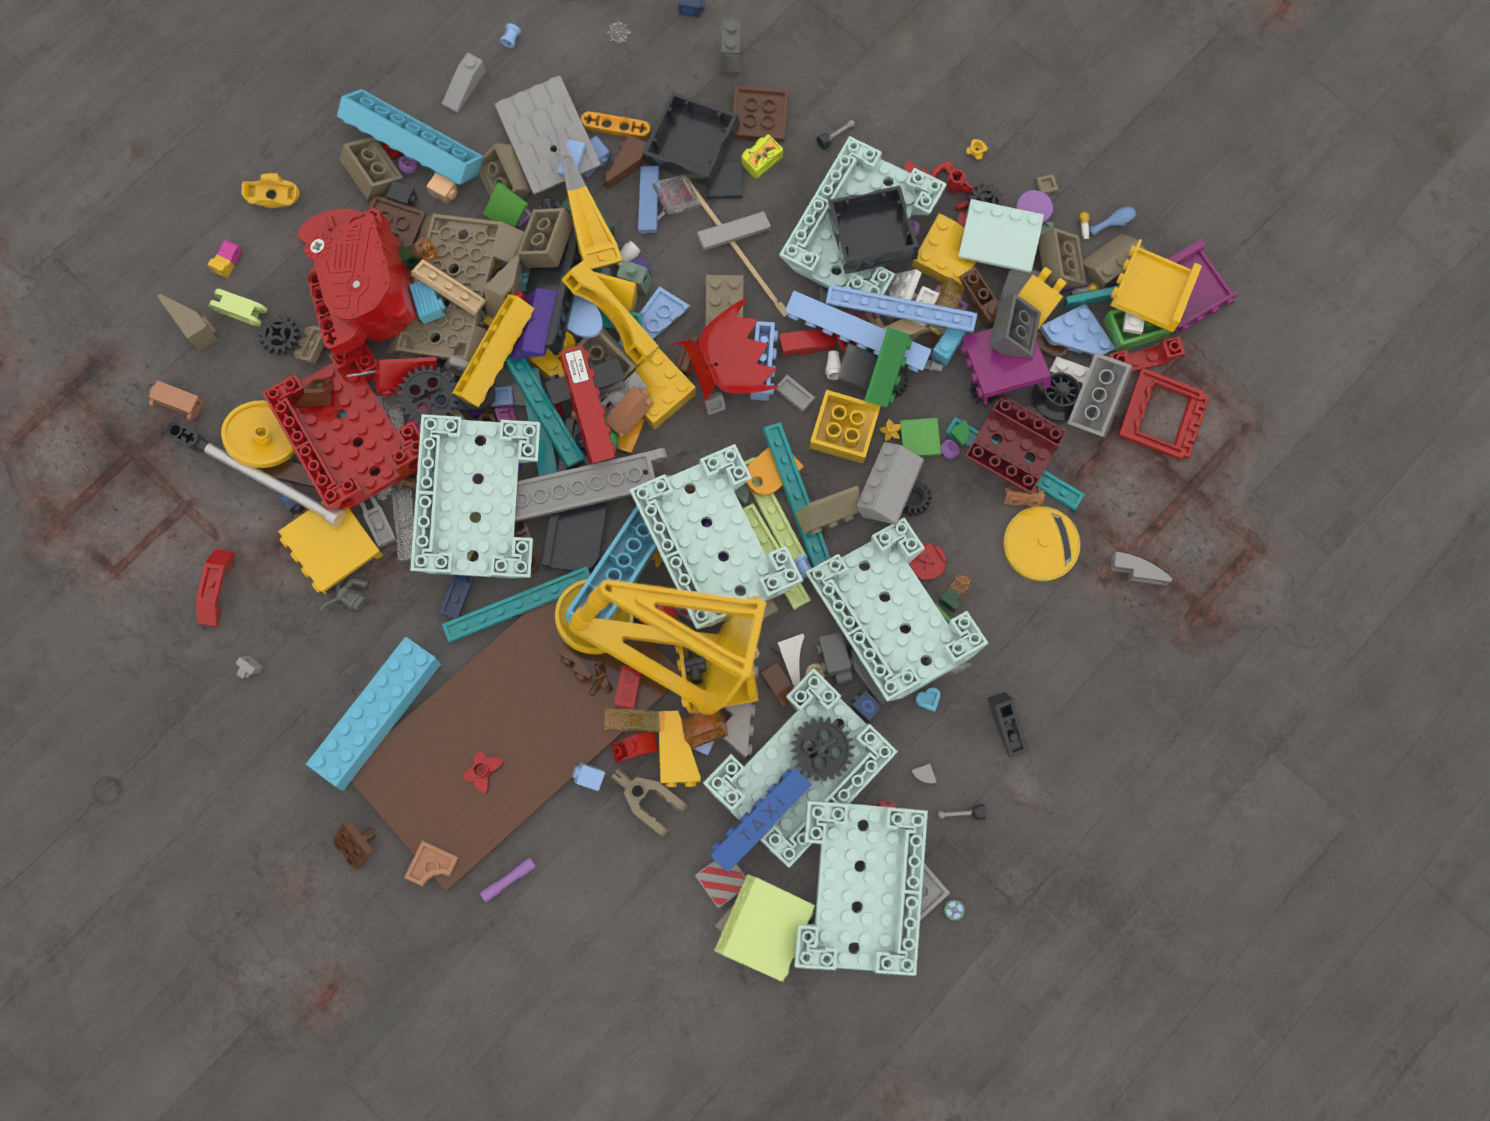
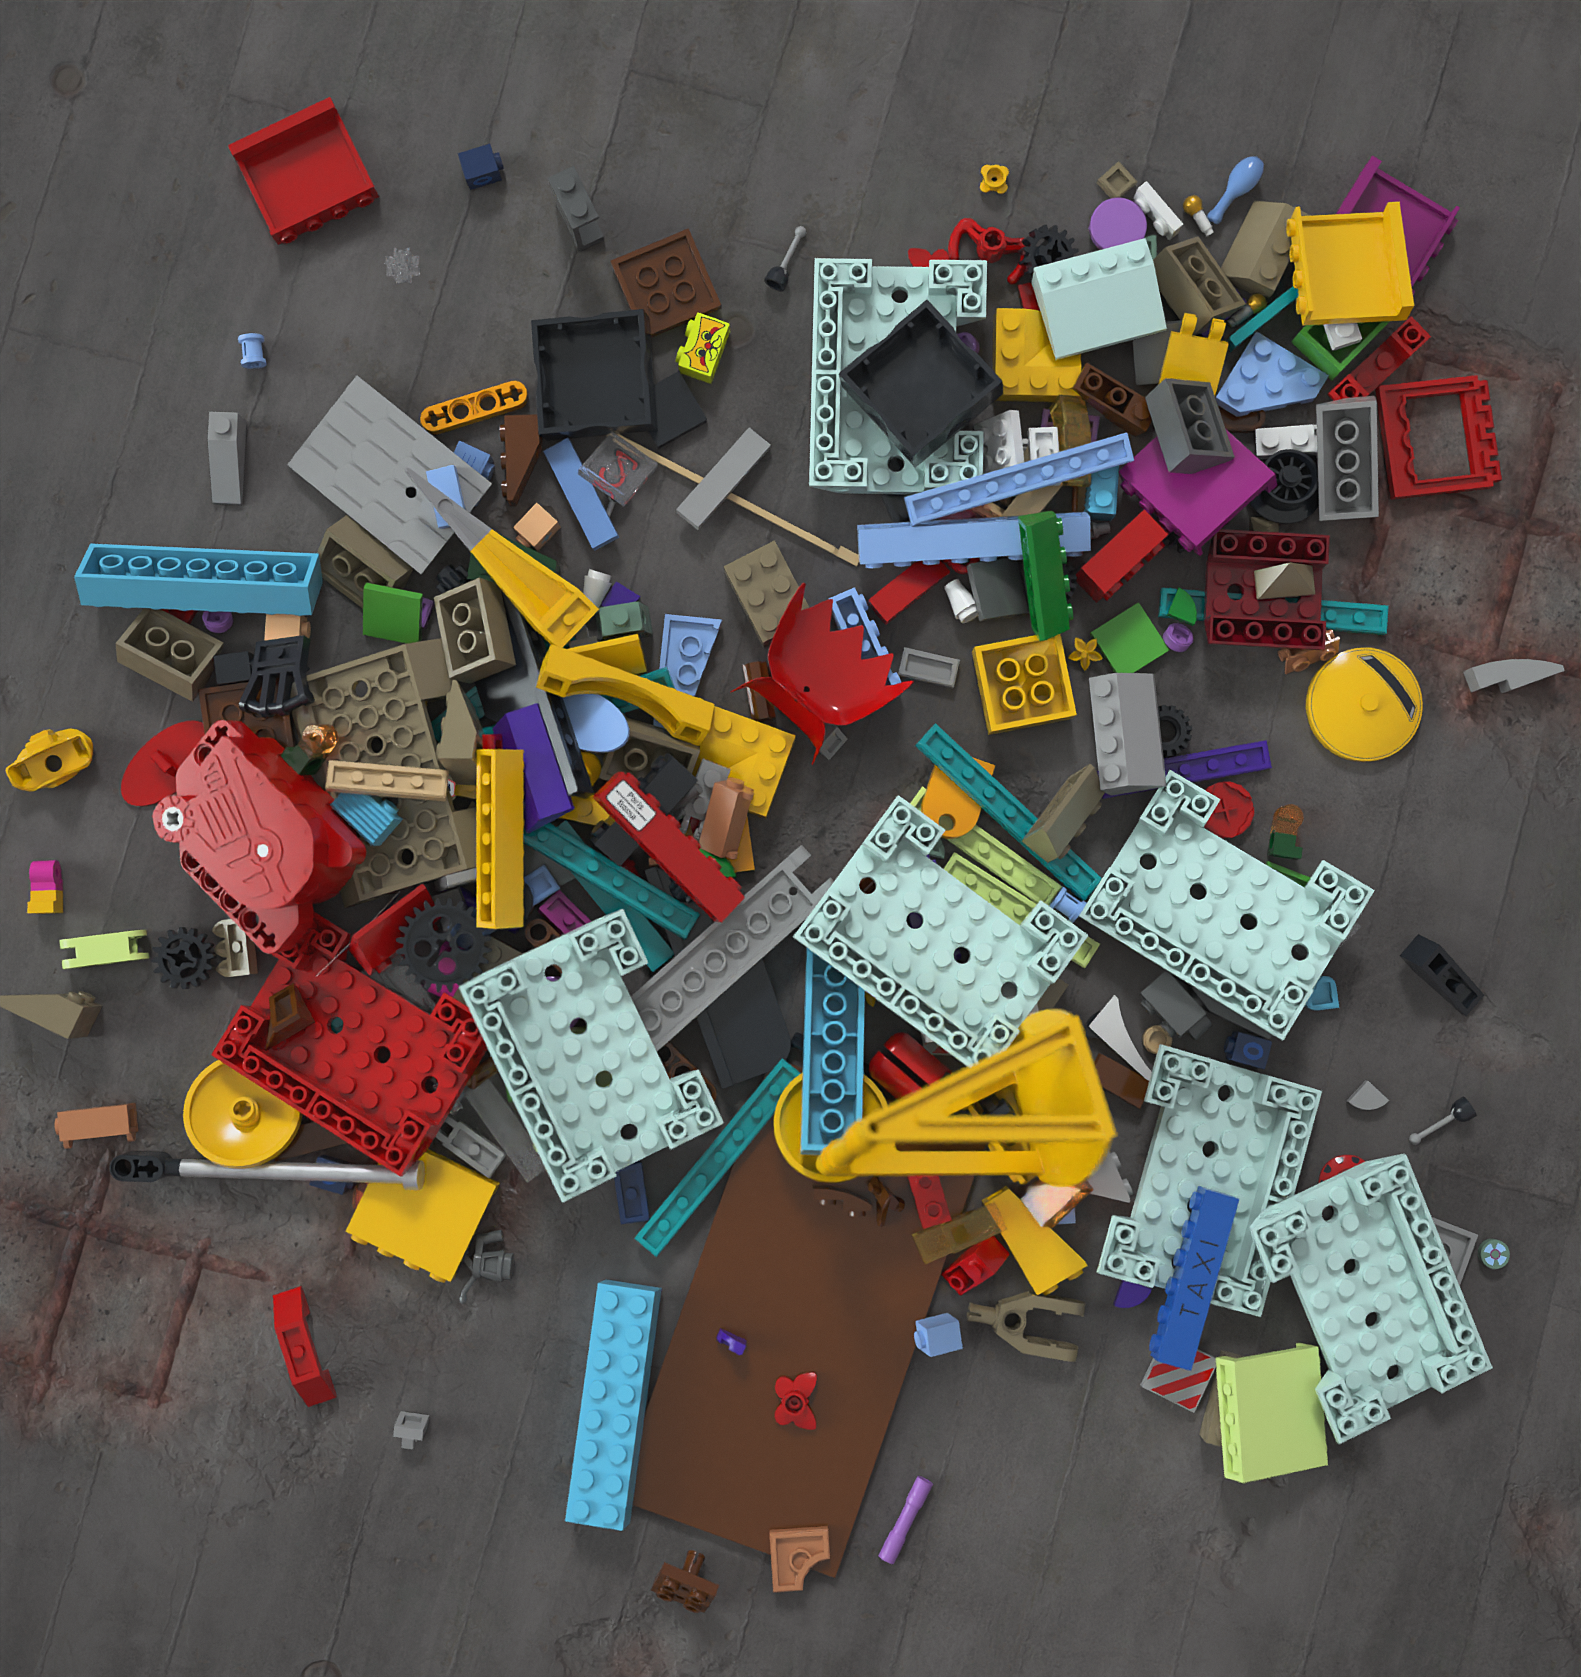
camera: 25 degrees left, 10 degrees up
(422, 203) = (282, 660): none -> black plate
(464, 715) = (736, 1343): none -> dark purple tile
(613, 204) = (536, 528): none -> light nougat brick
(718, 816) = (1131, 1294): none -> dark purple tile
(832, 764) = (1203, 1129): black gear -> none
(931, 531) = (1216, 763): none -> dark purple tile
(939, 384) = (1122, 557): none -> red brick
(1028, 444) = (1284, 581): none -> dark tan slope
(1062, 213) = (1163, 218): none -> white plate

